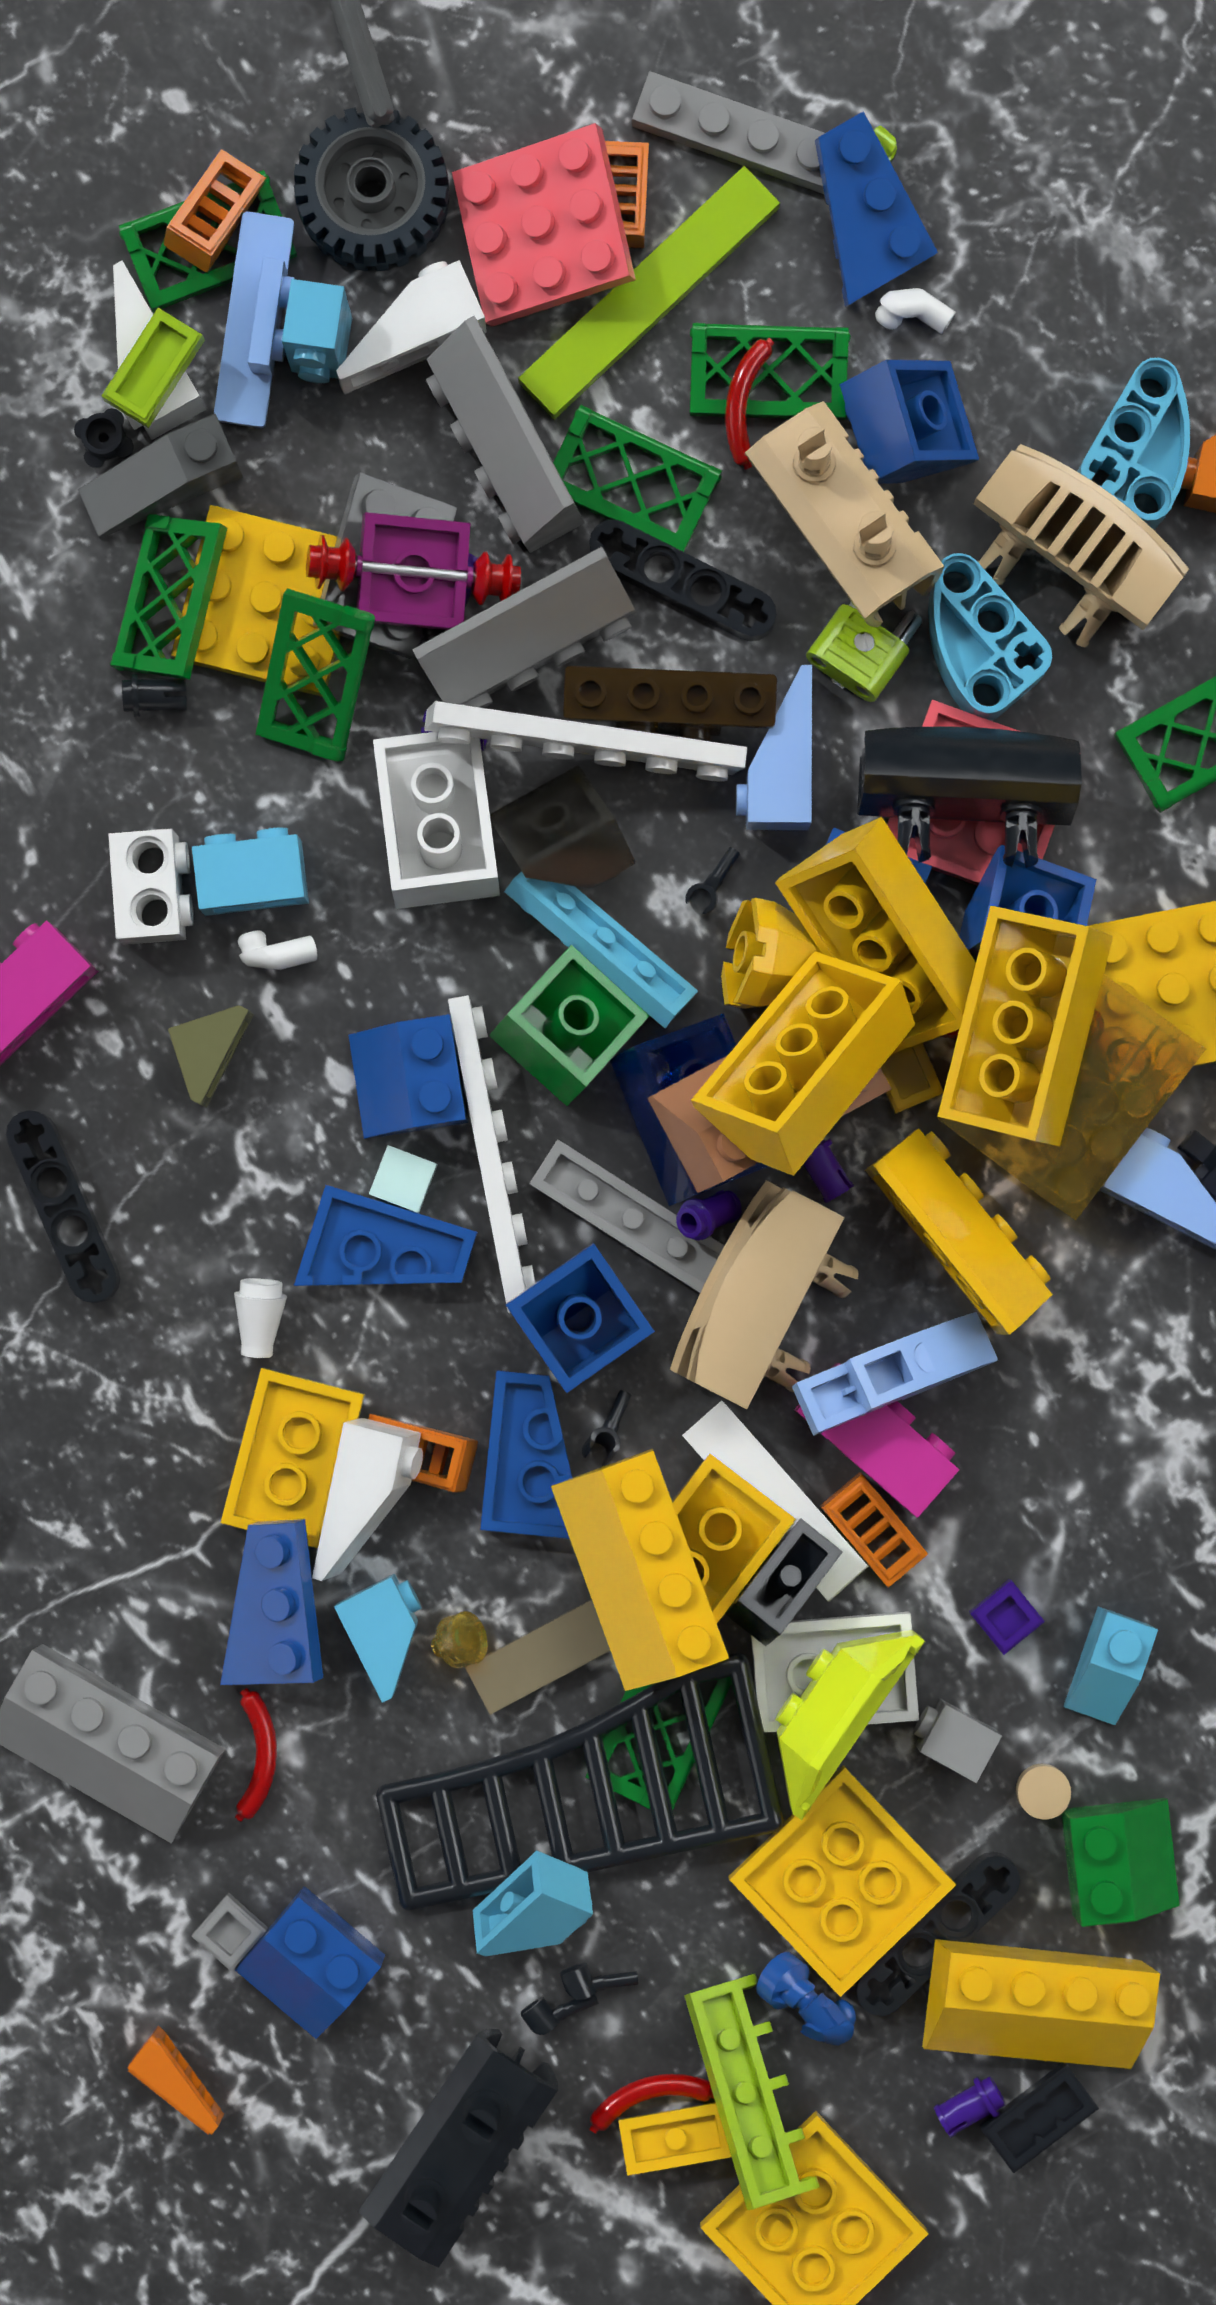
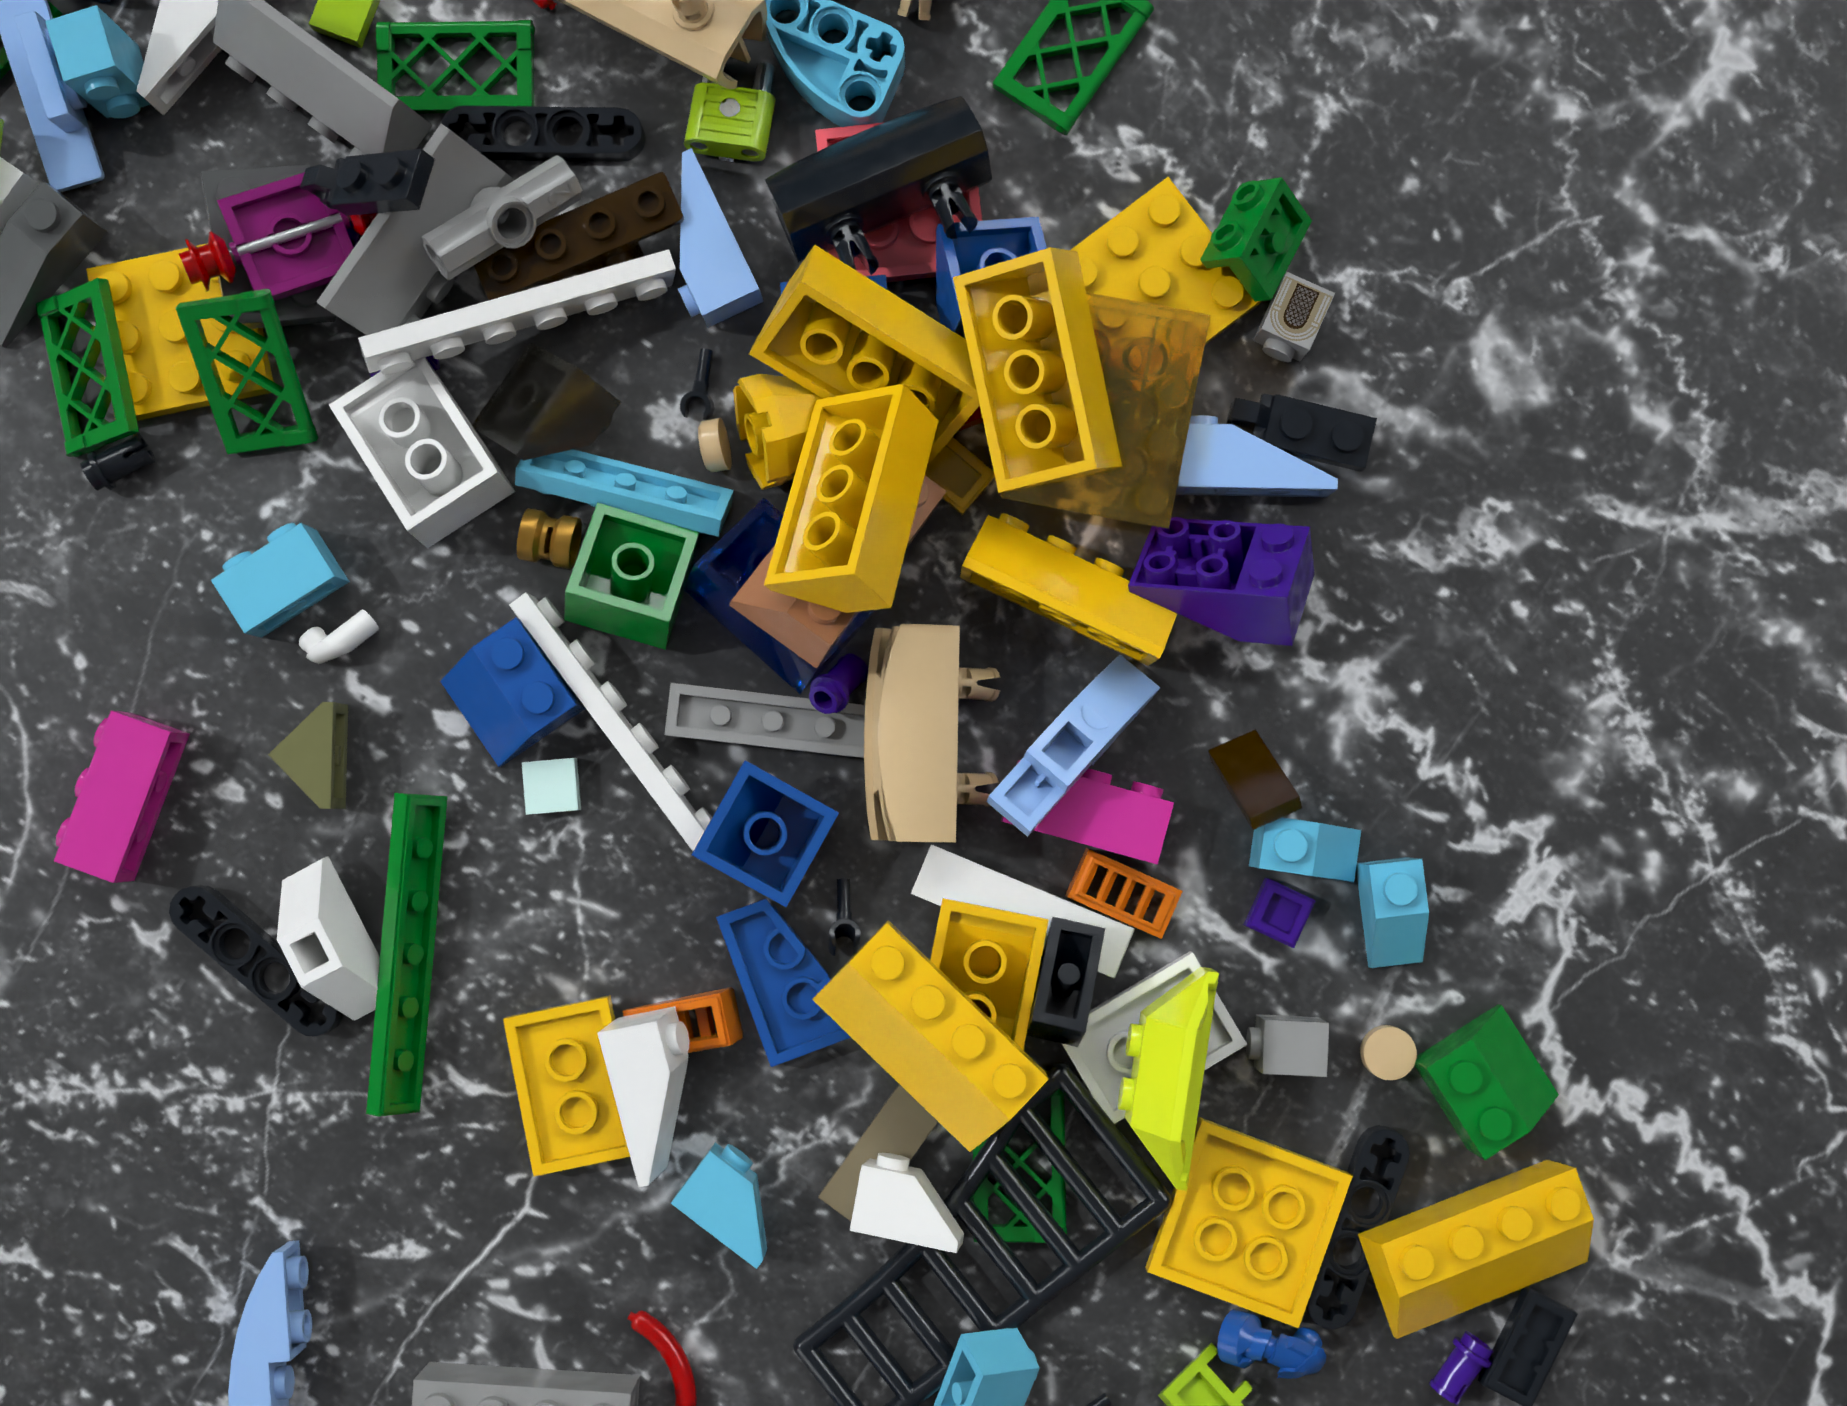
camera: 25 degrees left, 0 degrees up
(136, 889) = (183, 645): white brick -> none
(140, 1224) = (327, 940): none -> white slope
(202, 1267) = (406, 954): none -> green tile
(259, 1315) = (479, 971): white cone -> none
(274, 1610) = (619, 1232): blue wing -> none
(379, 1243) = (556, 854): blue wing -> none
(460, 1640) = (802, 1174): clear yellow tile -> none
(501, 947) = (549, 538): none -> pearl gold wheel
(514, 568) = (372, 182): none -> black hinge
(540, 1710) = (903, 1205): none -> white slope
(613, 650) = (475, 231): none -> light grey piece
(701, 942) = (714, 445): none -> tan tile
(827, 1172) = (923, 593): dark purple pin -> none
(1042, 1484) = (1255, 779): none -> dark brown tile
(1058, 1569) = (1306, 849): none -> medium azure slope
(1109, 1290) = (1229, 576): none -> dark purple slope

